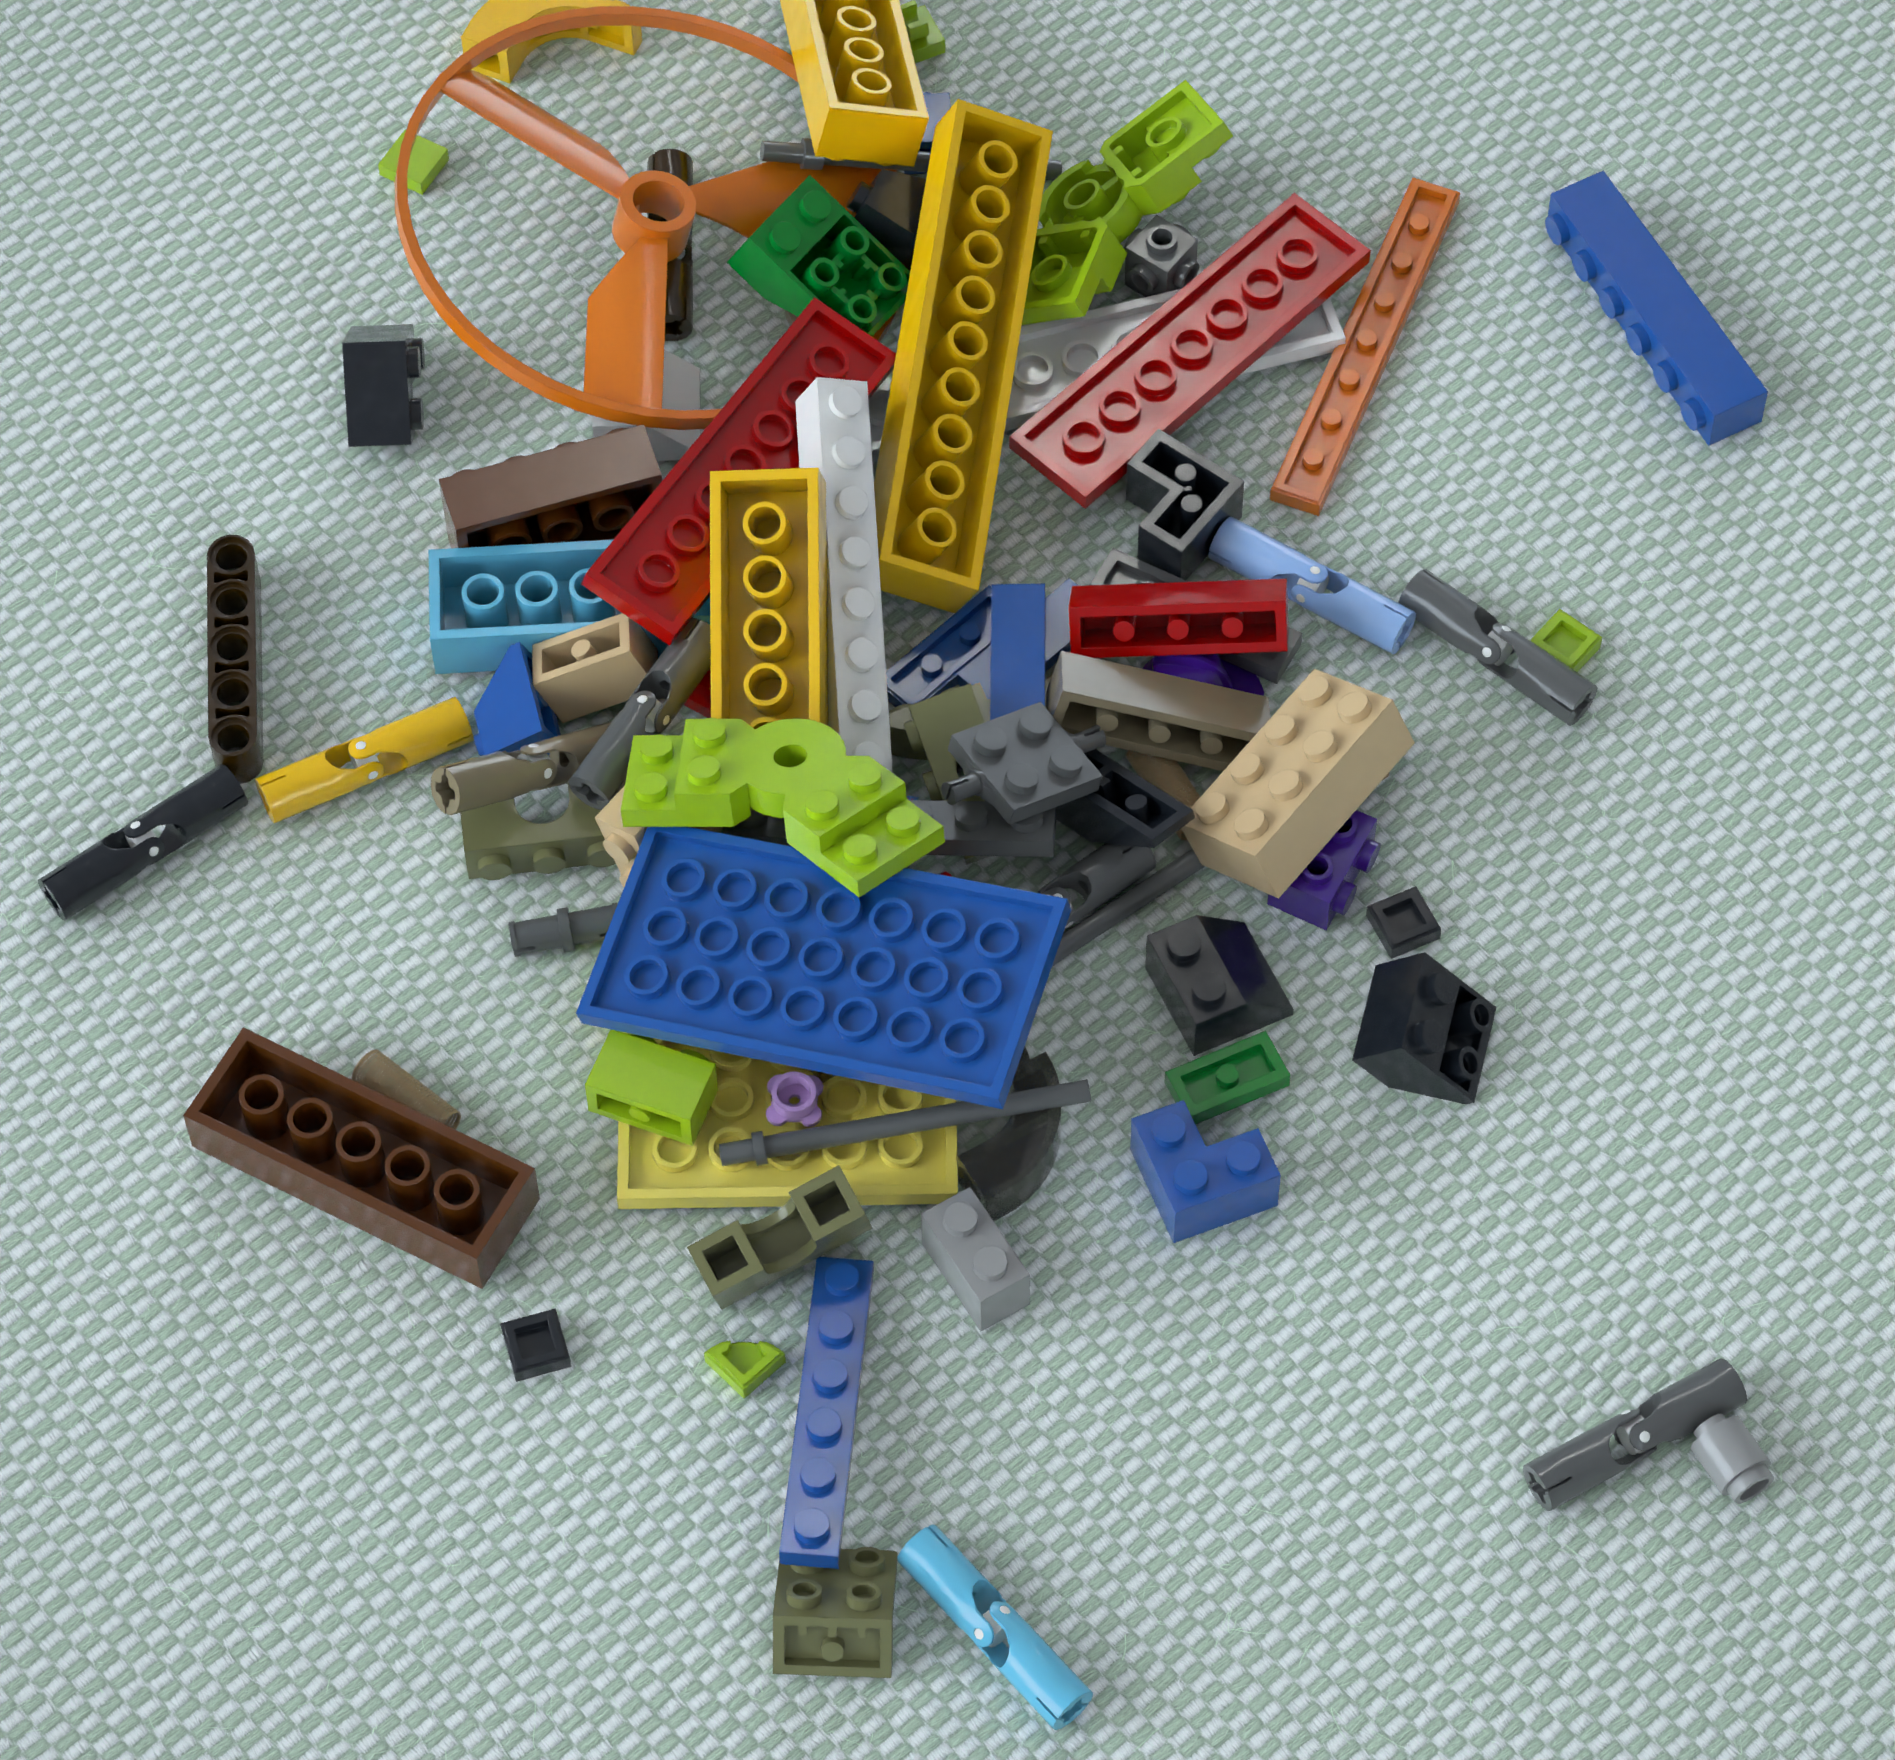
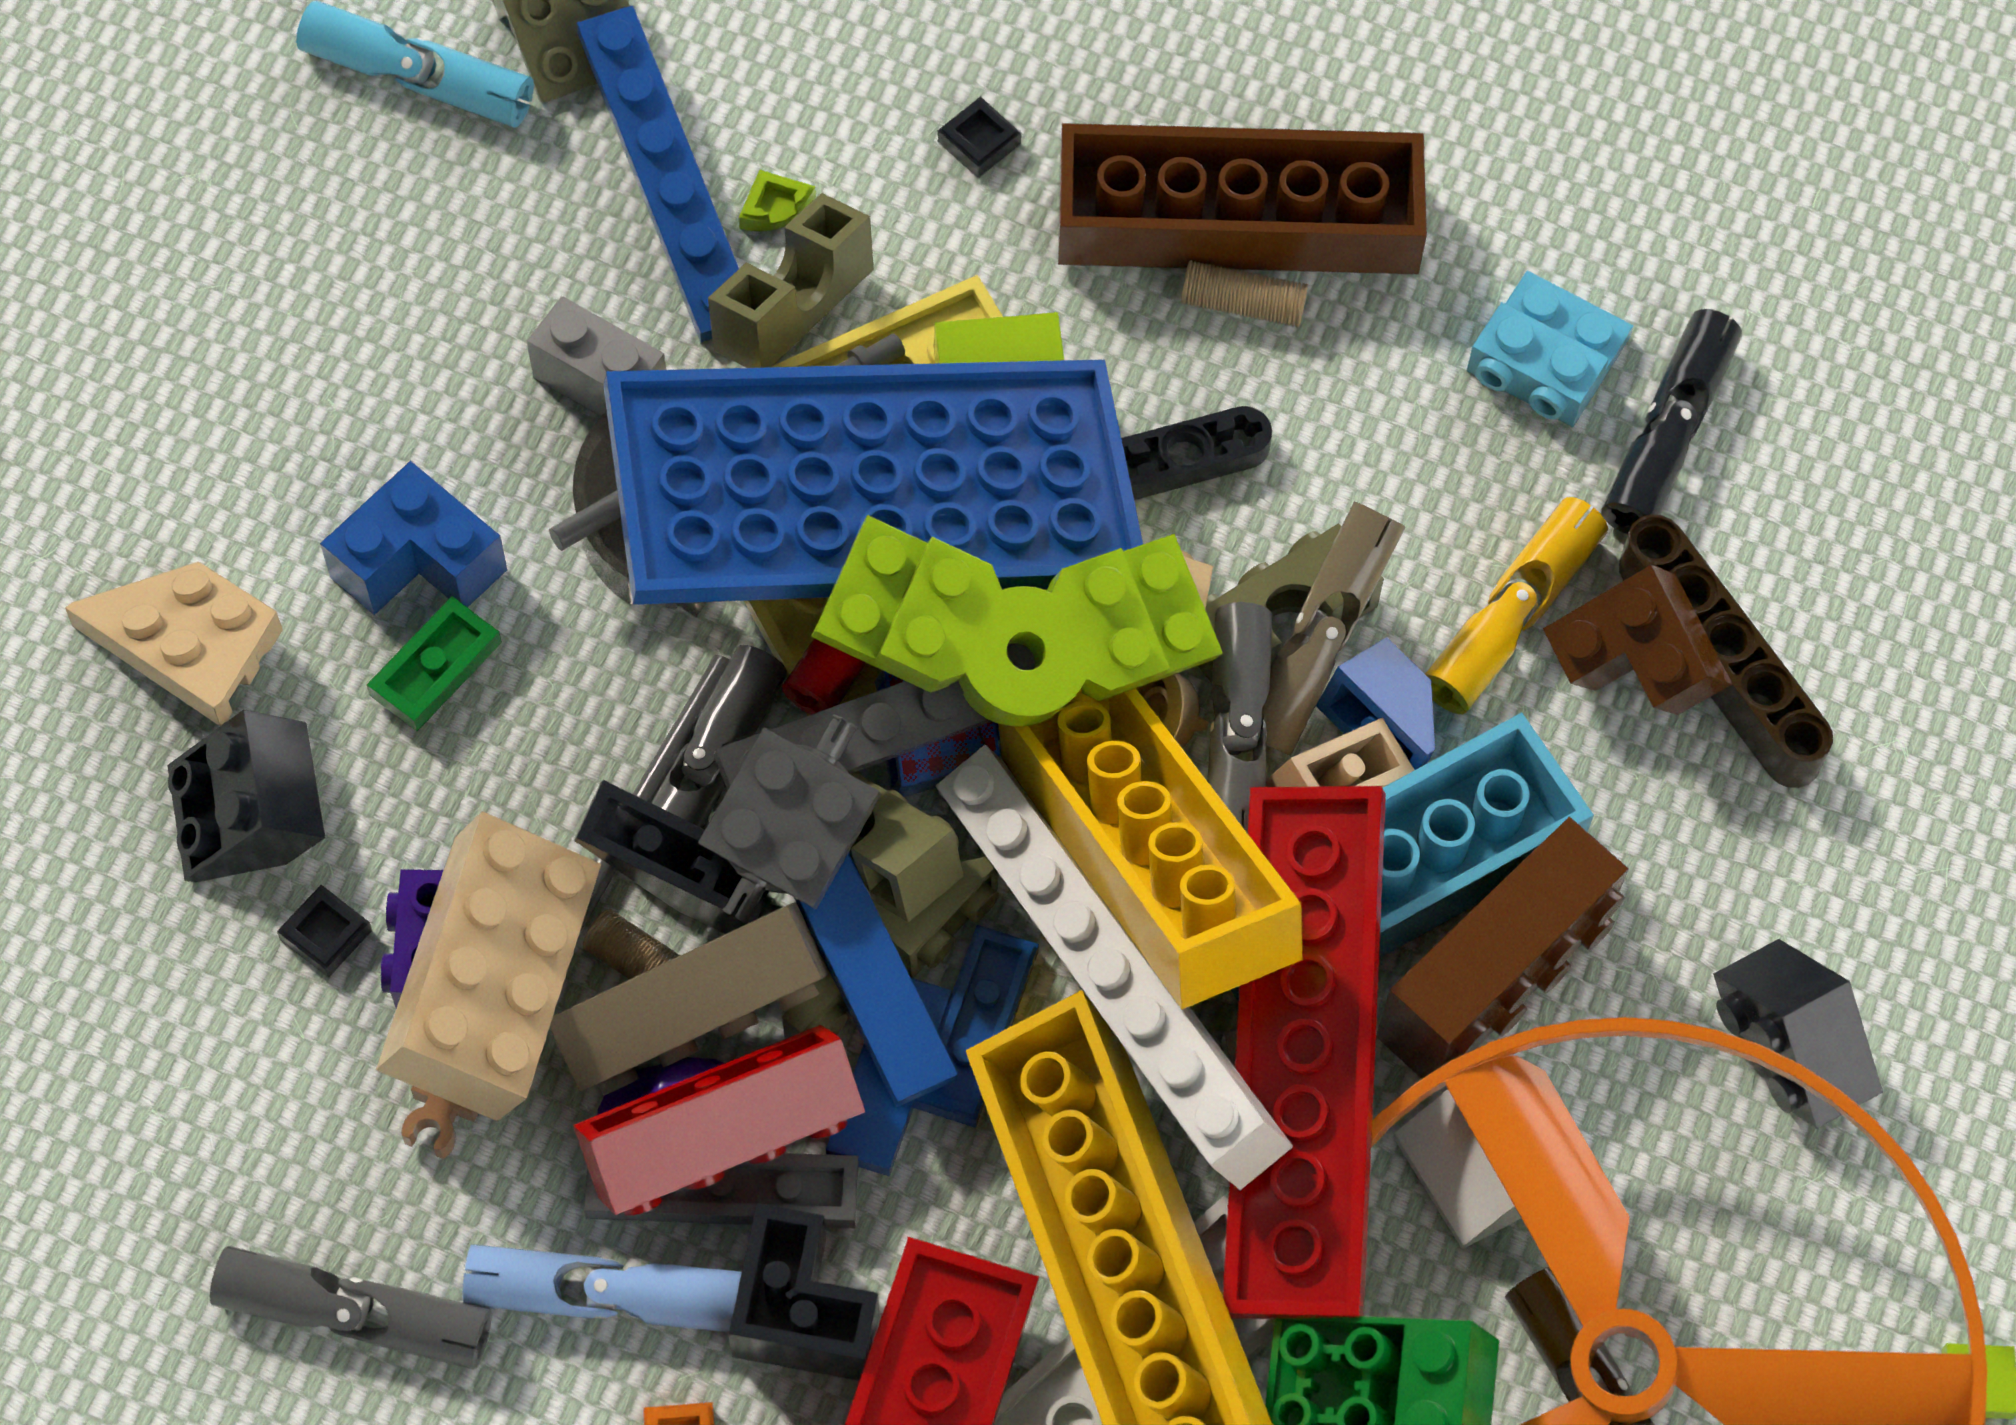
camera: 150 degrees right, 5 degrees up
(194, 947) = (1548, 348): none -> medium azure plate
(296, 668) = (1646, 629): none -> reddish brown brick
(494, 1002) = (1198, 431): none -> black beam
(561, 930) = (1200, 519): dark grey pin -> none
(1214, 981) = (492, 753): black slope -> none
(1418, 1172) = (184, 633): none -> tan wing
(1568, 640) = (277, 1362): lime tile -> none

